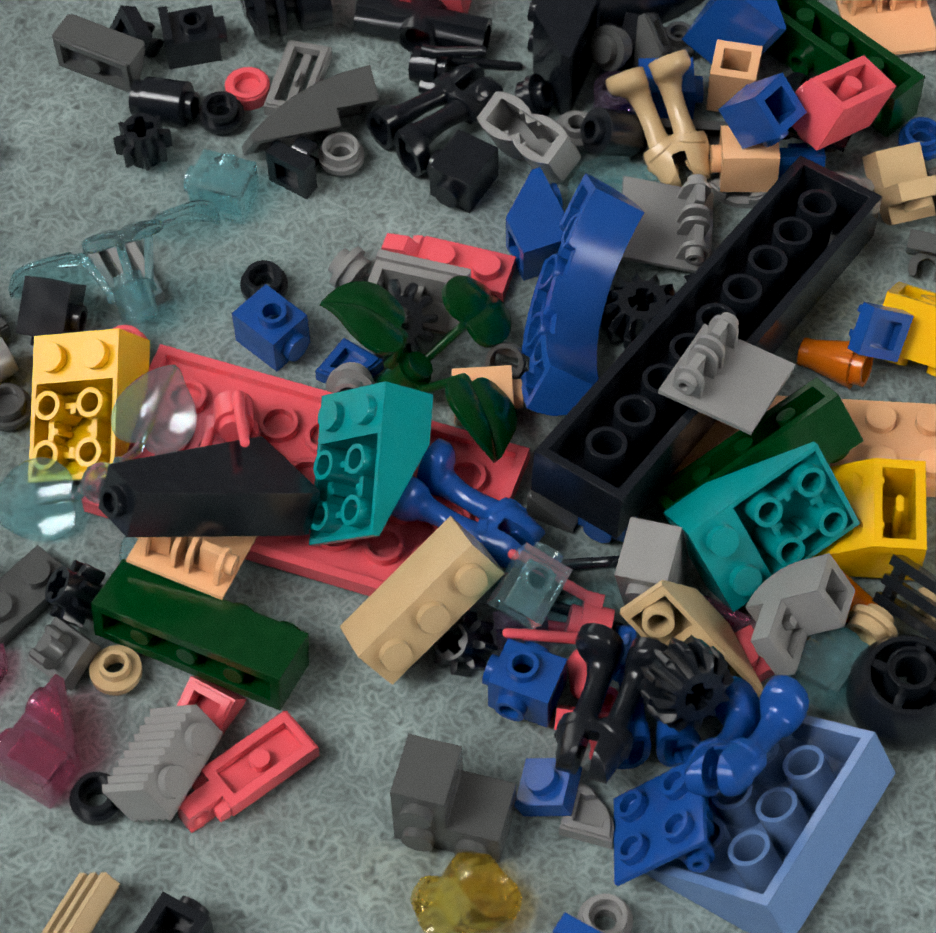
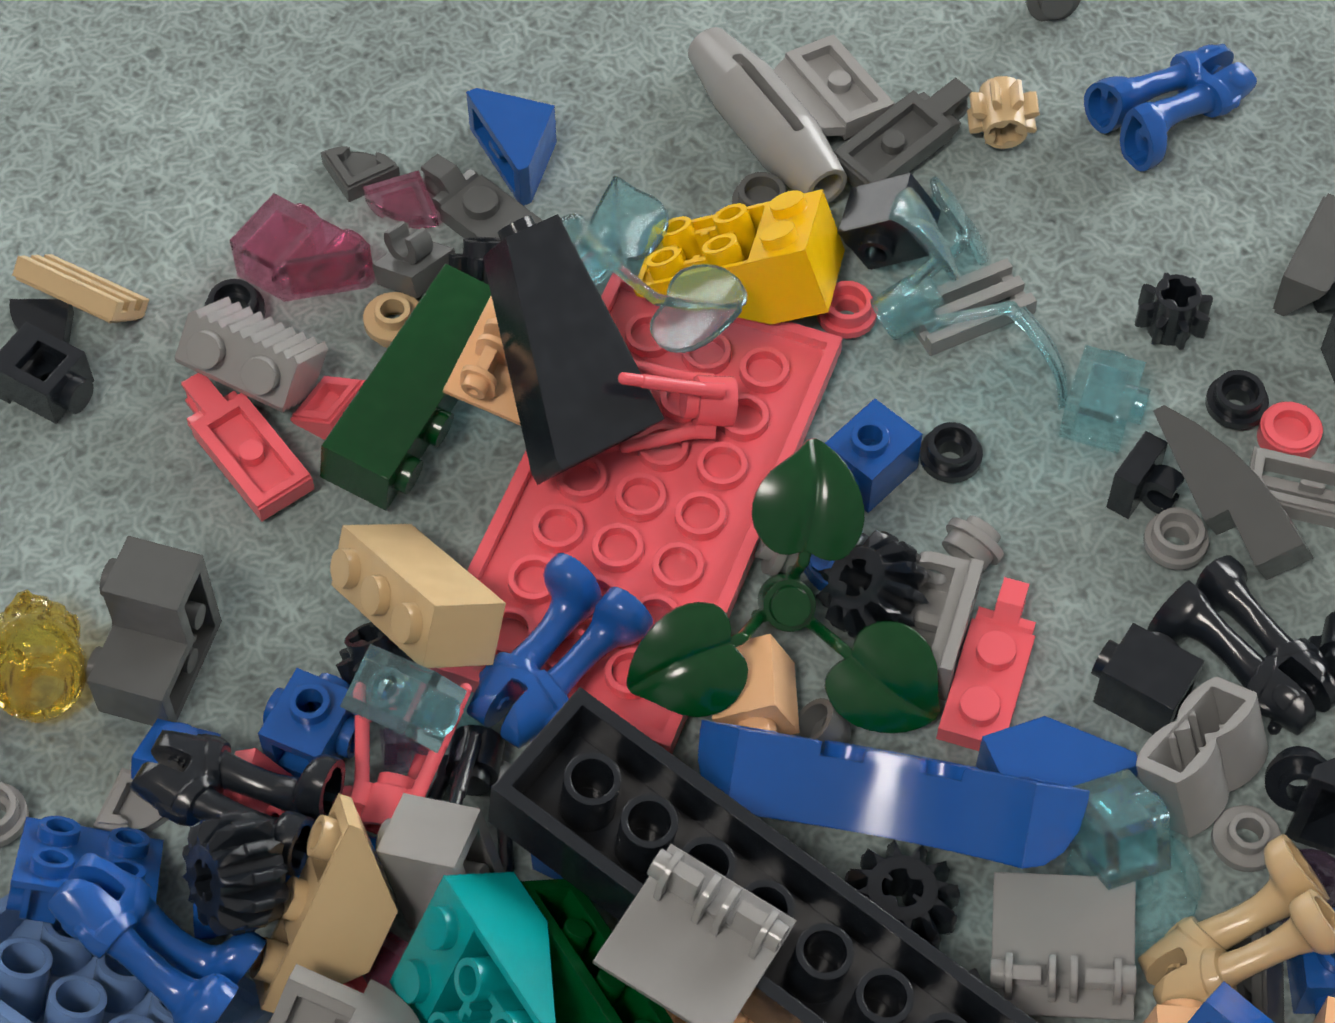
camera: 90 degrees right, 0 degrees up
(165, 98) = (1247, 331): black brick -> none
(366, 458) = (619, 527): teal slope -> none
(597, 160) = (1123, 830): none -> clear light blue brick
(612, 132) = (1224, 867): black brick -> none

